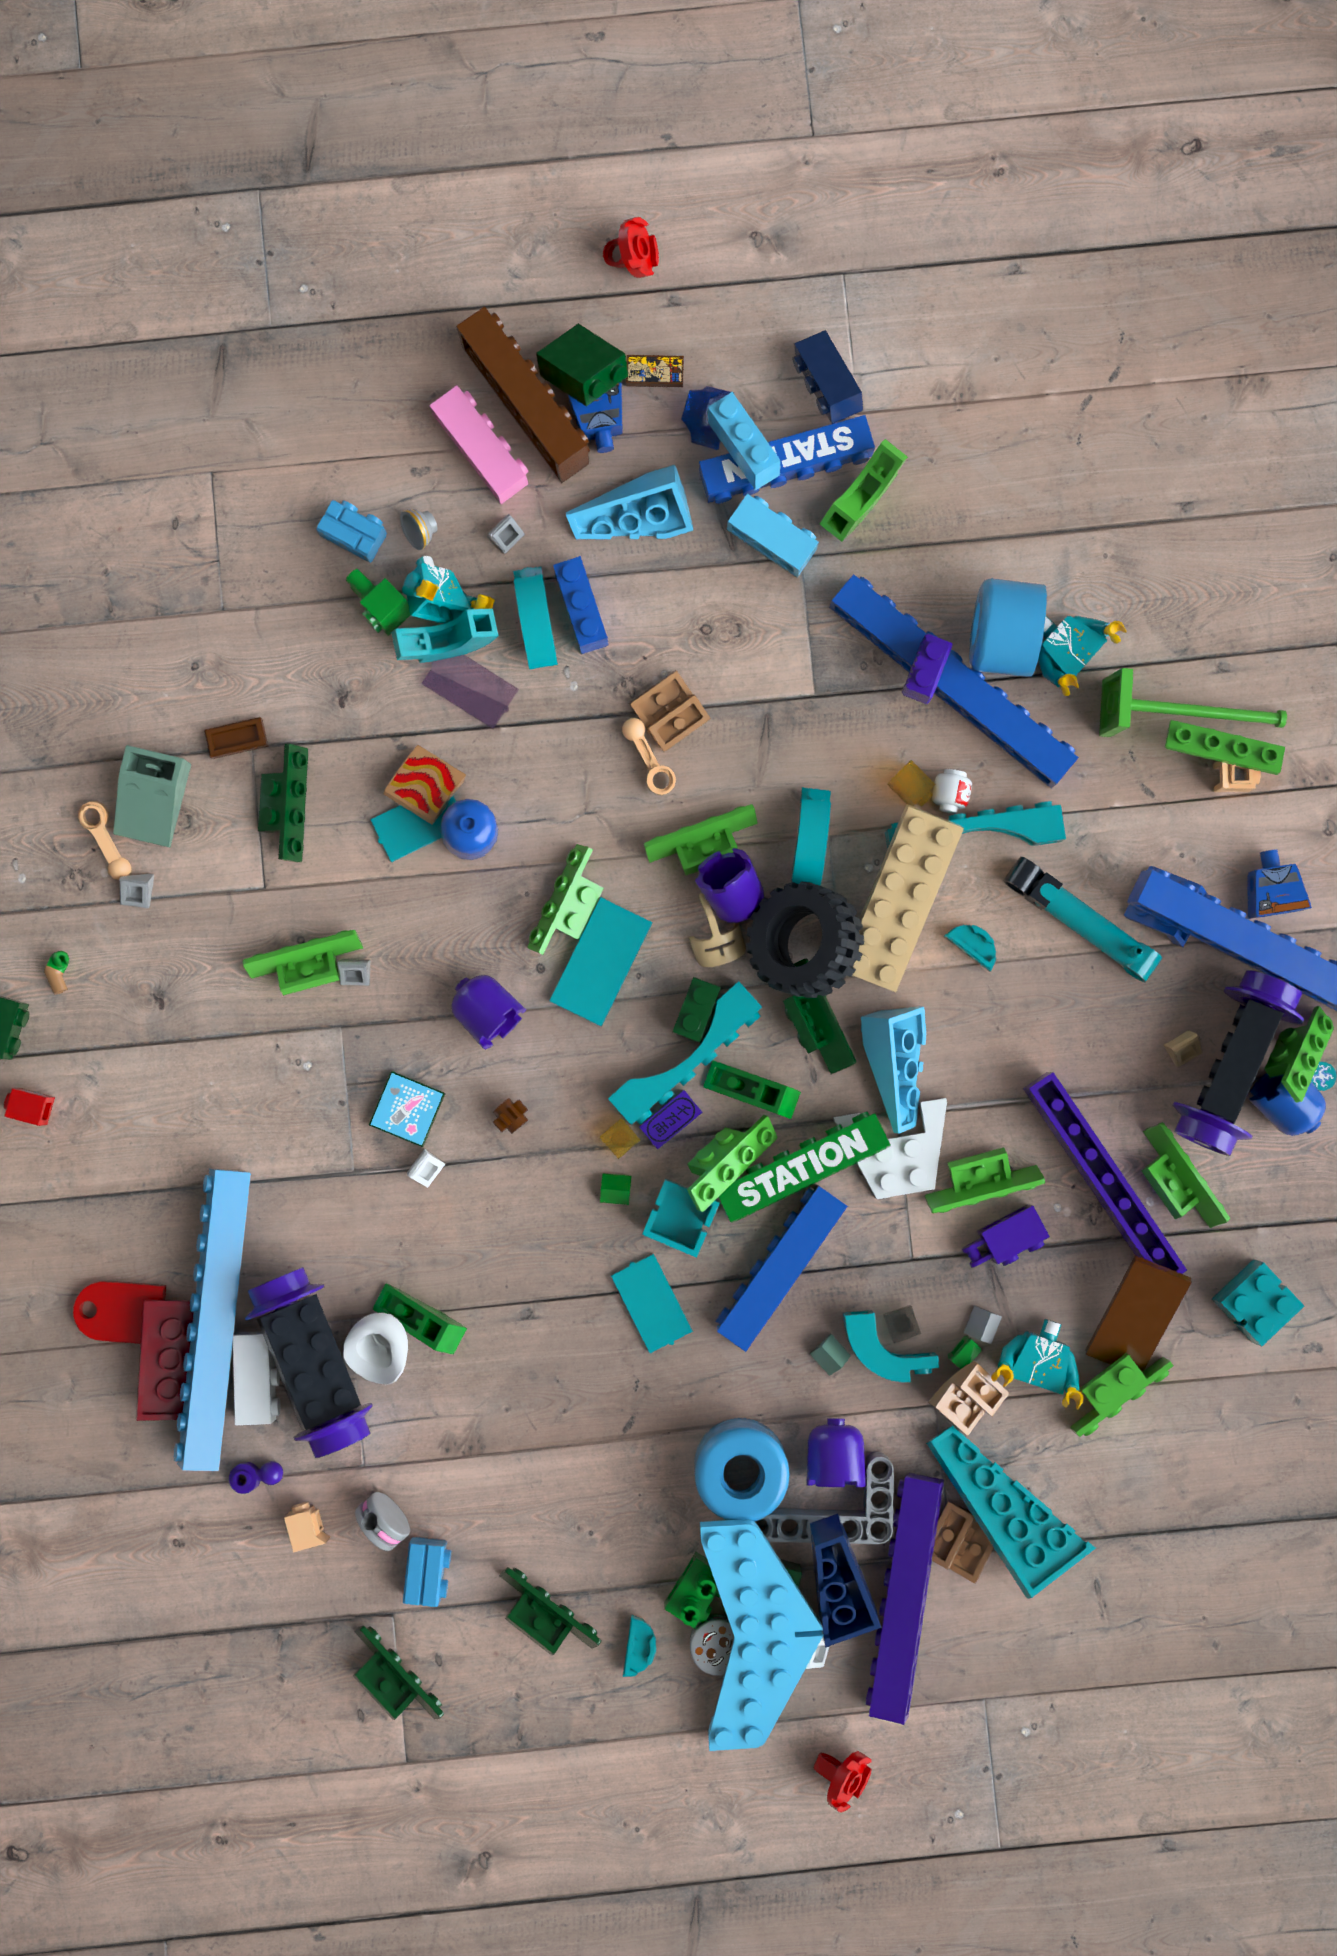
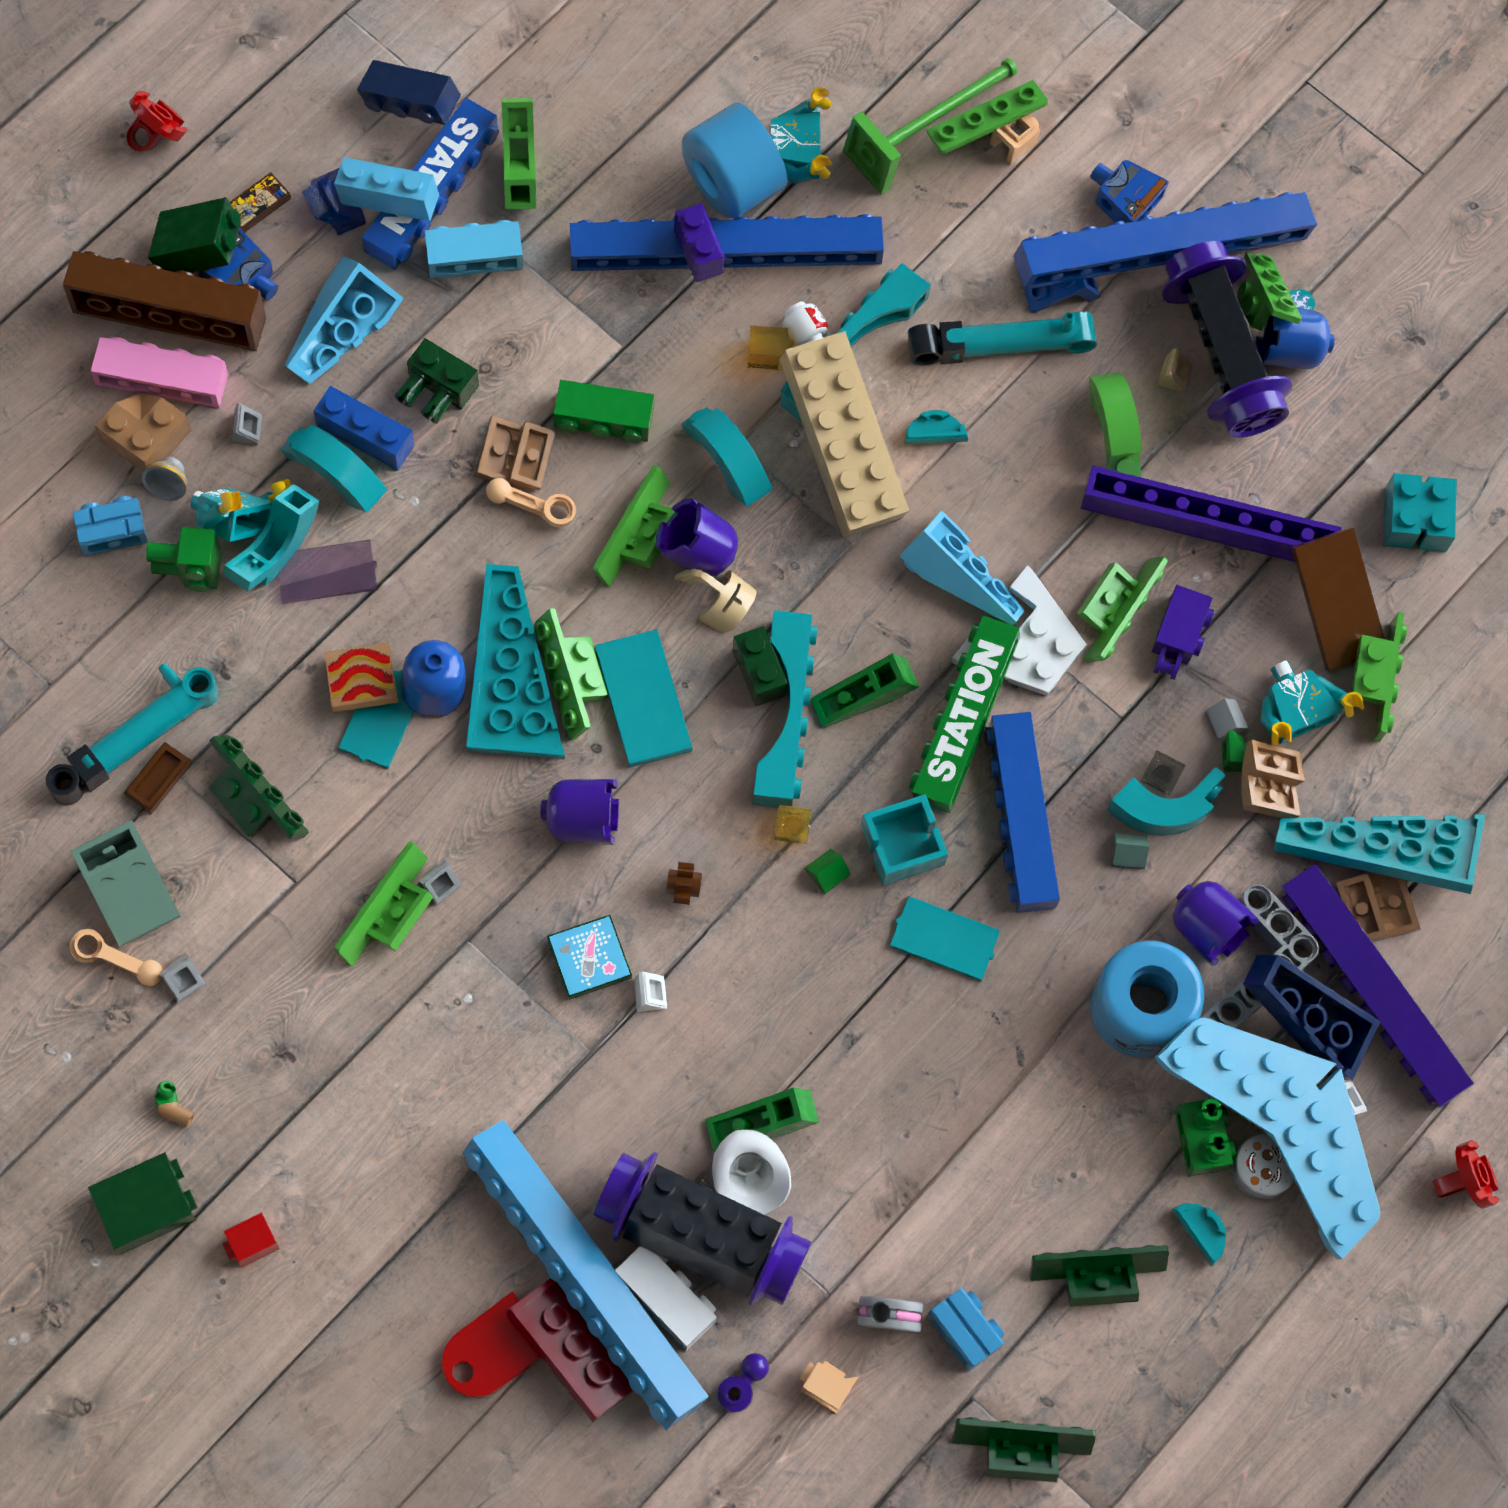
camera: 50 degrees left, 15 degrees down
(202, 693) = (94, 763): none -> teal piece
(432, 477) = (143, 429): none -> medium nougat slope
(517, 877) = (510, 690): none -> teal wing
(670, 617) = (440, 373): none -> dark green brick
(670, 1119) = (820, 774): dark purple tile -> none
(727, 1159) = (897, 758): bright green bracket -> none
(755, 733) = (603, 411): none -> green brick
(771, 935) = (760, 520): black tyre -> none
(819, 1029) = (863, 590): dark green bracket -> none
(1104, 1054) = (1119, 422): none -> bright green arch
(1179, 1181) = (1270, 471): bright green bracket -> none

